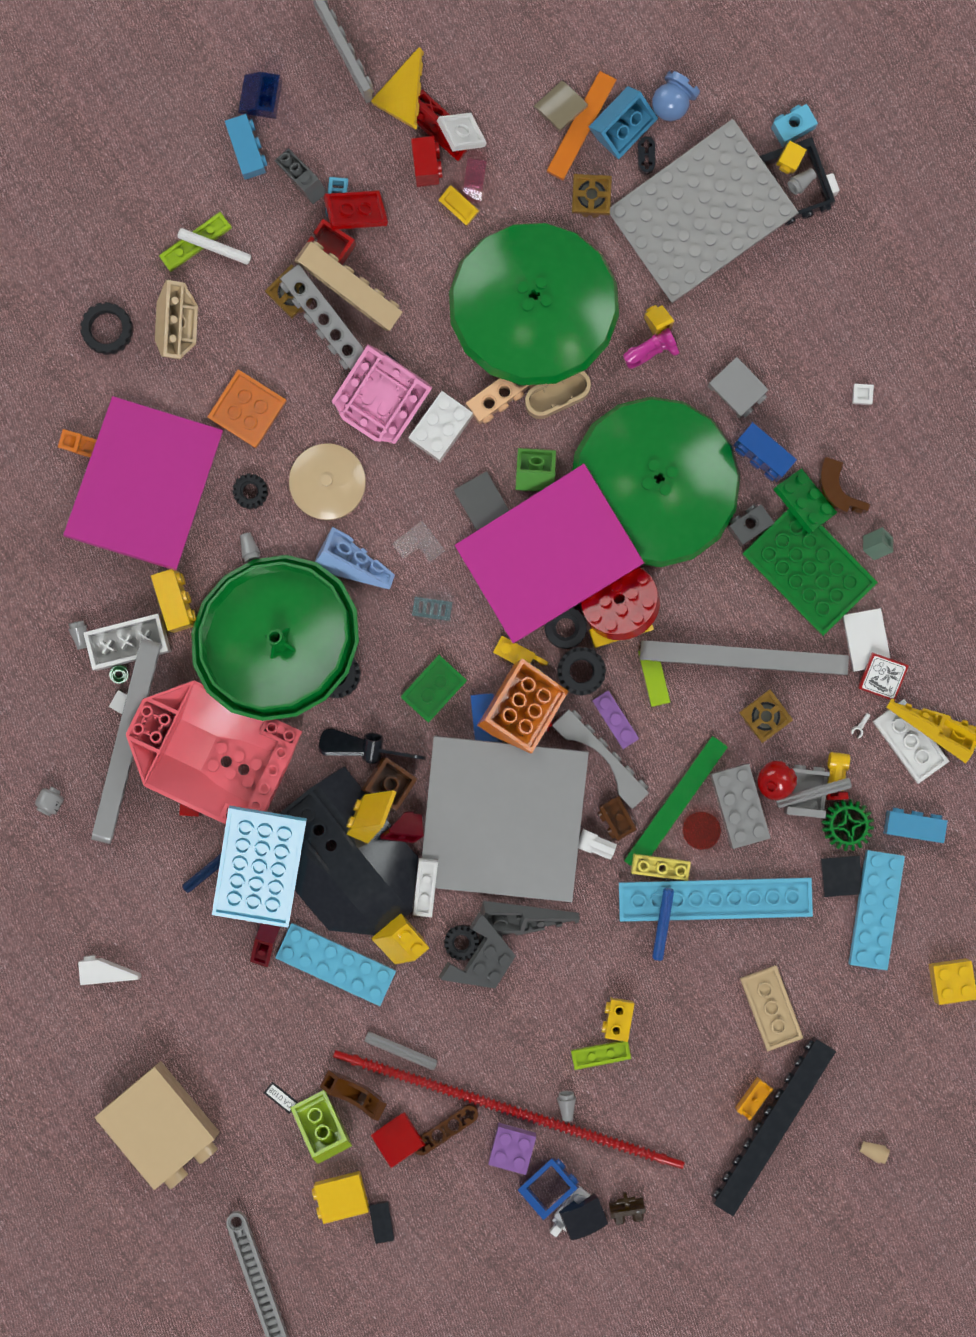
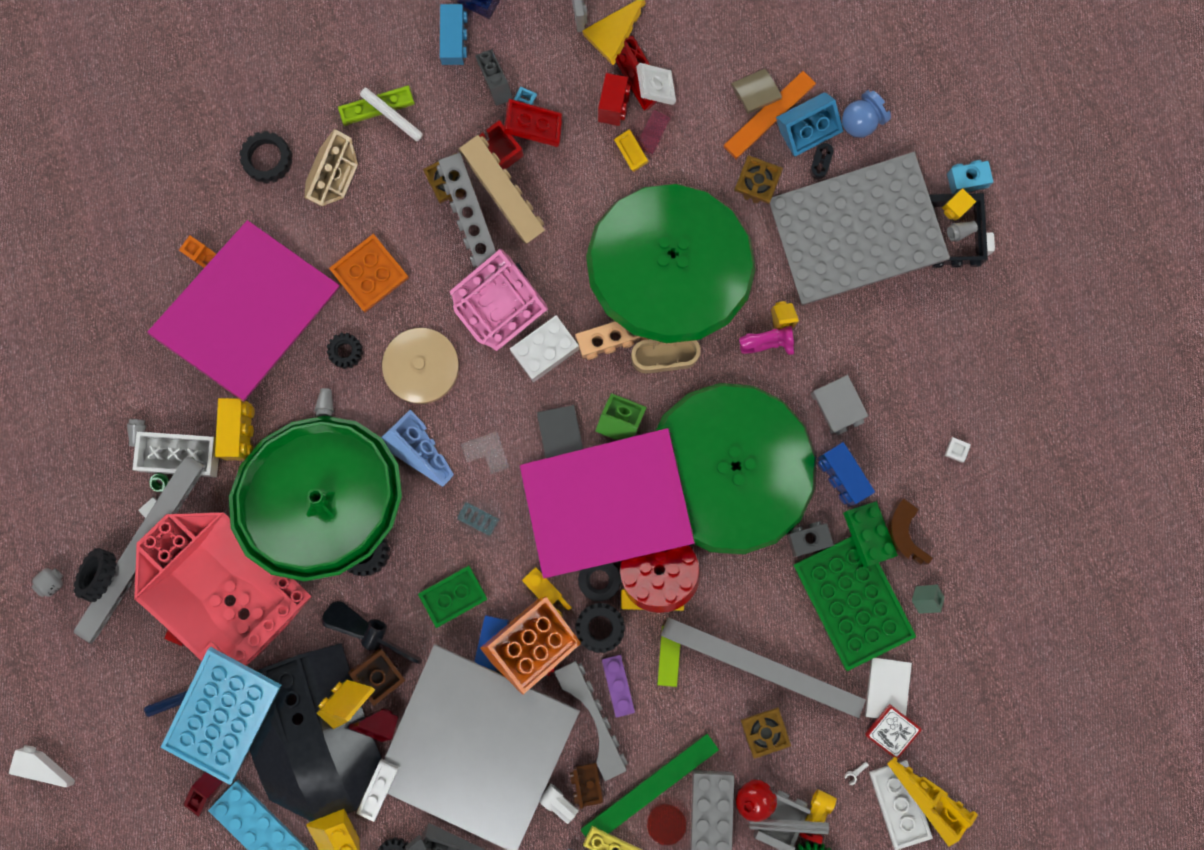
camera: 15 degrees right, 5 degrees down
(103, 780) = (98, 562): none -> black tyre

